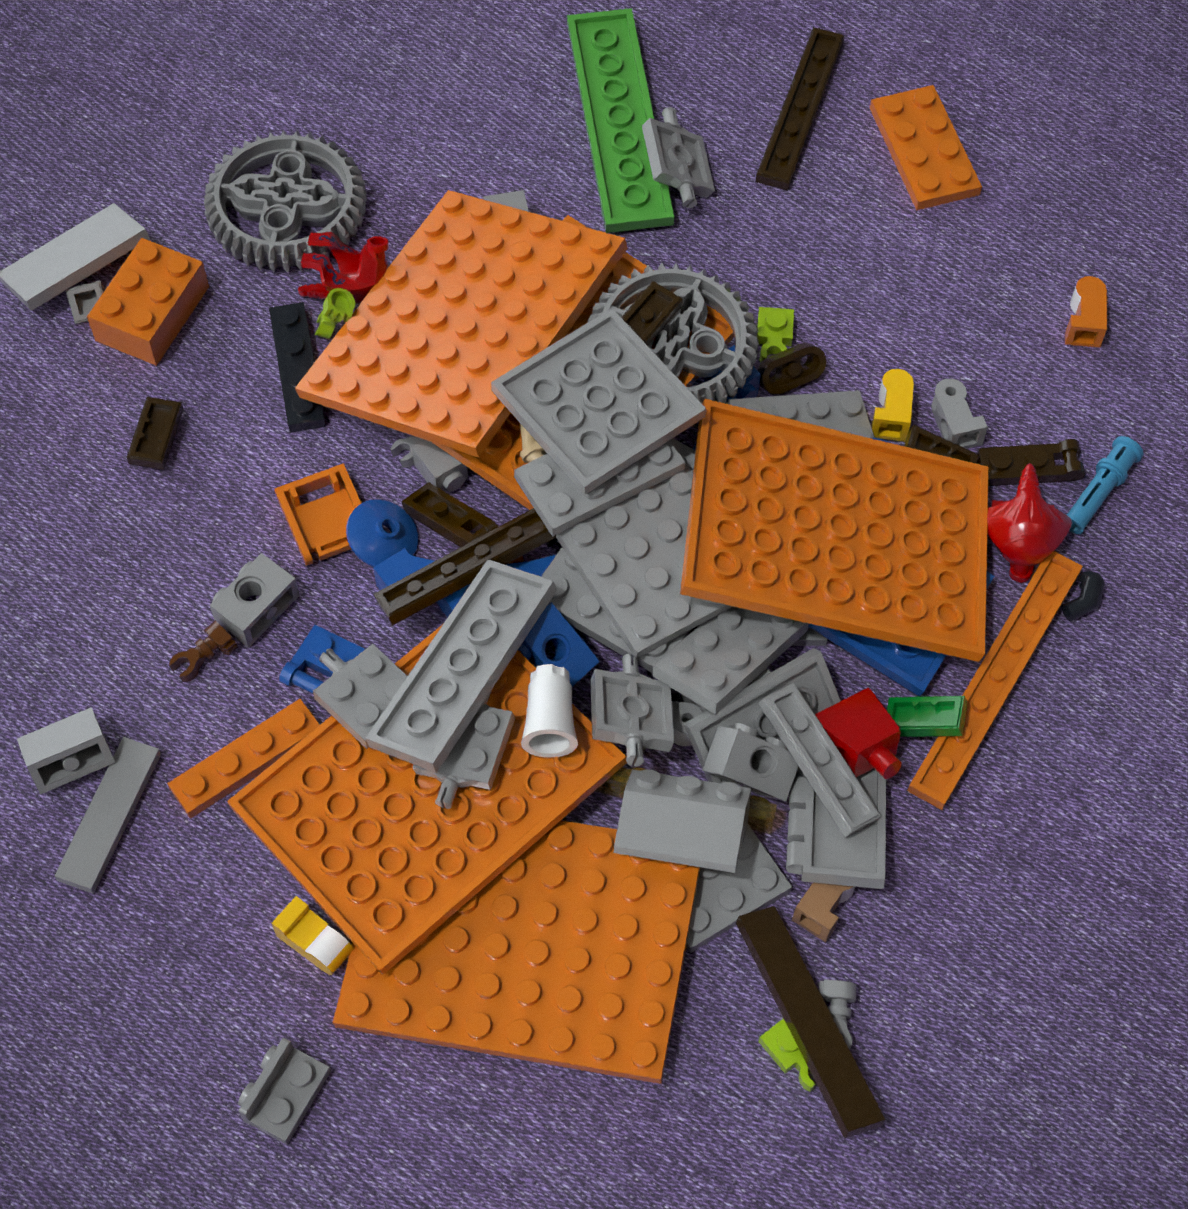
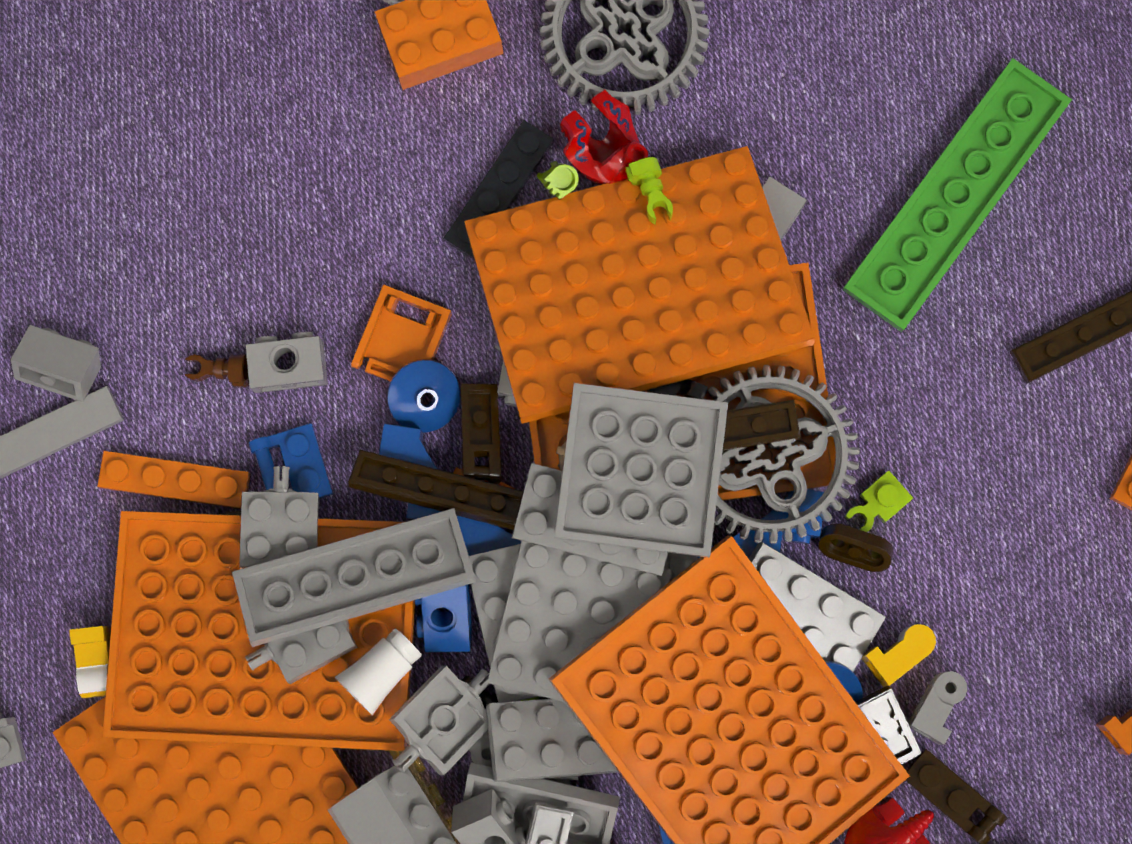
camera: 50 degrees right, 20 degrees up
(155, 433) = (344, 153): dark brown plate -> none
(397, 249) = (646, 173): none -> lime piece
(678, 157) = (959, 281): light grey plate -> none

